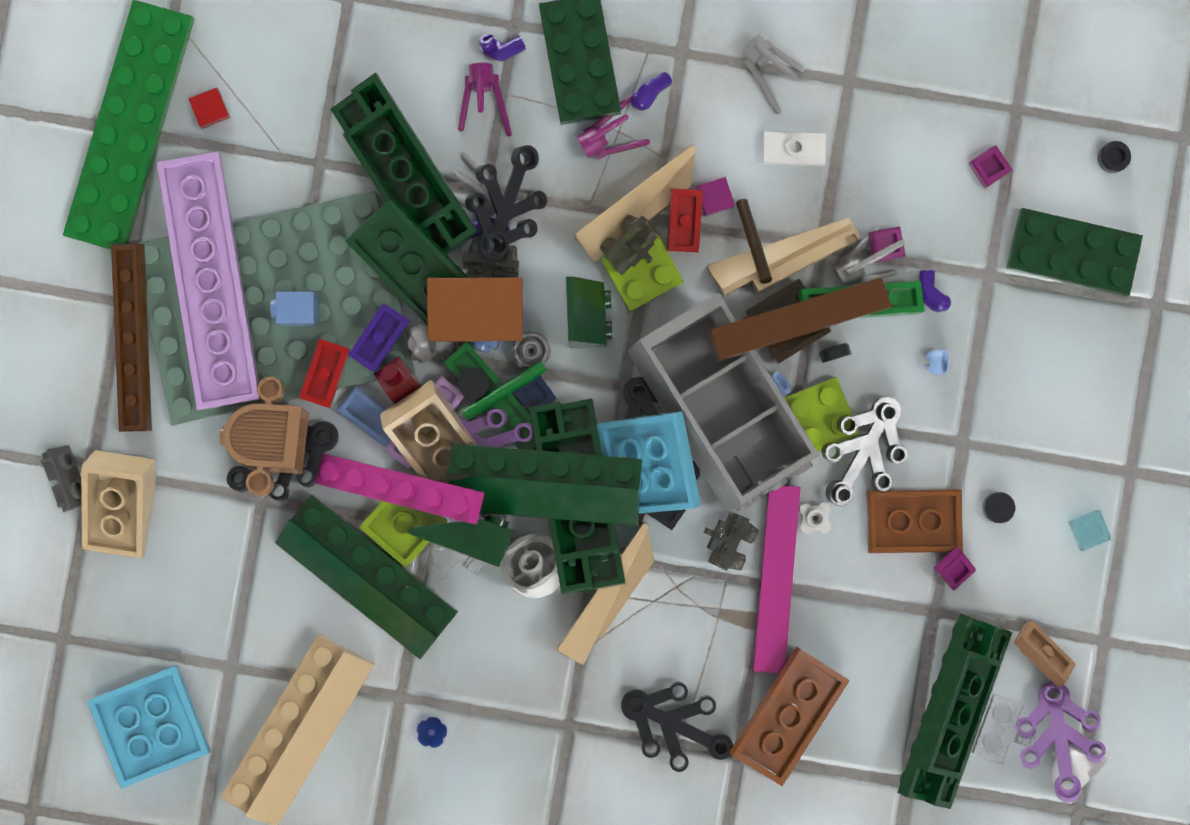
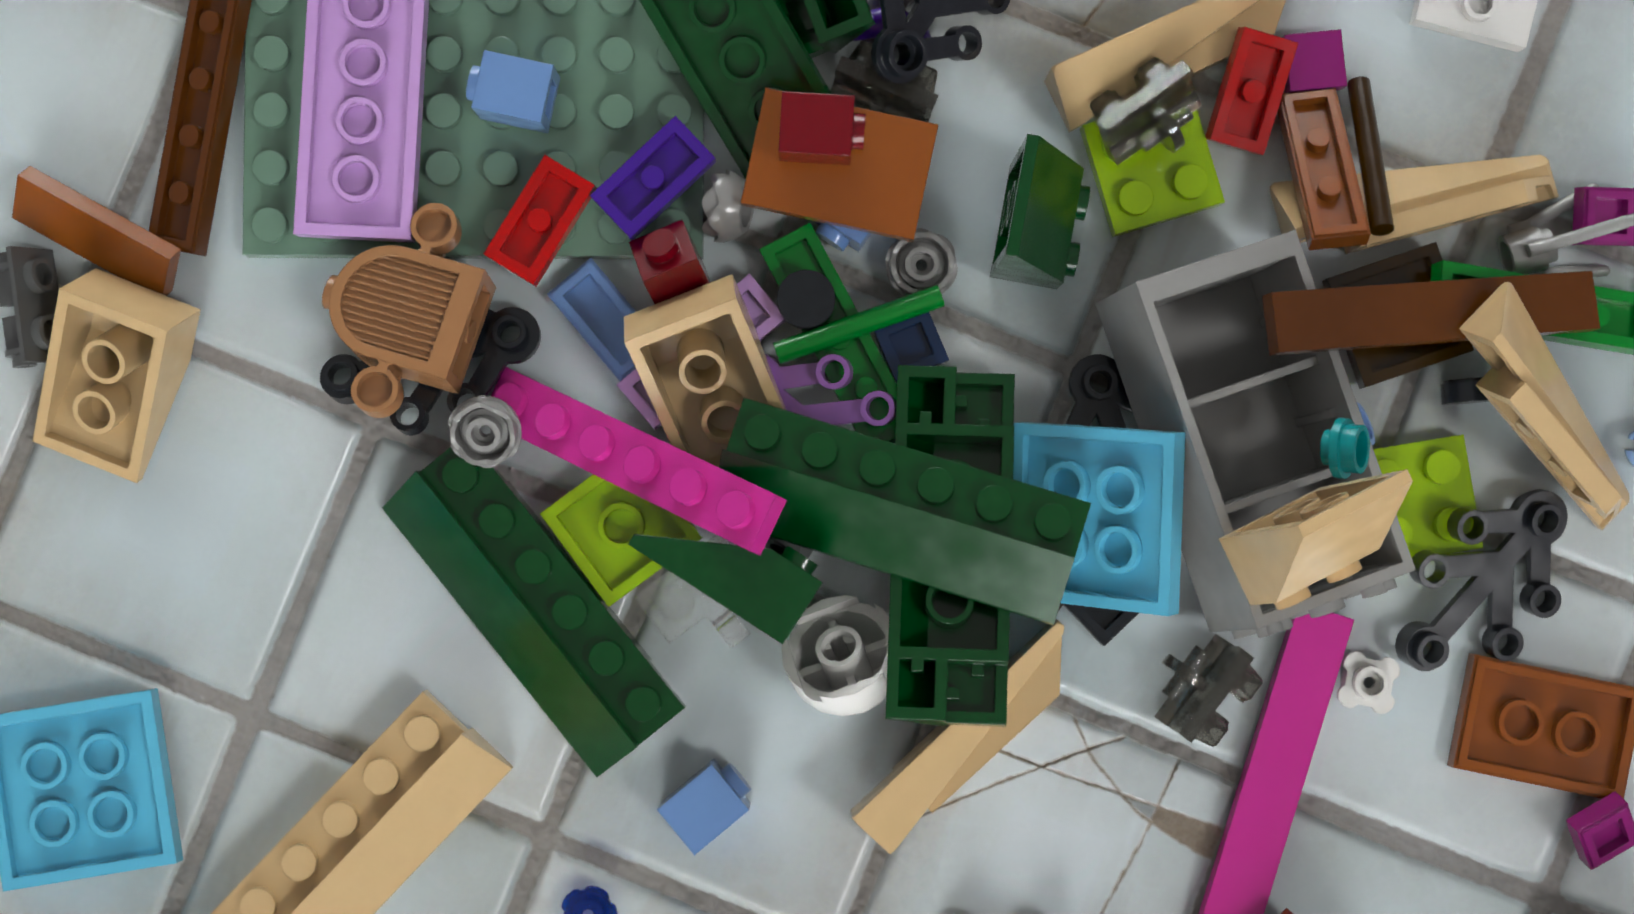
camera: 10 degrees right, 0 degrees up
(90, 431) = (94, 232): none -> dark orange tile
(316, 499) = (474, 445): none -> light grey plate
(459, 294) = (819, 128): none -> dark red brick
(480, 660) = (706, 804): none -> medium blue brick
(730, 253) = (1323, 170): none -> dark orange tile
(756, 453) = (1314, 538): none -> tan slope
(766, 401) = (1345, 448): none -> teal plate
(871, 354) = (1541, 406): none -> tan wedge

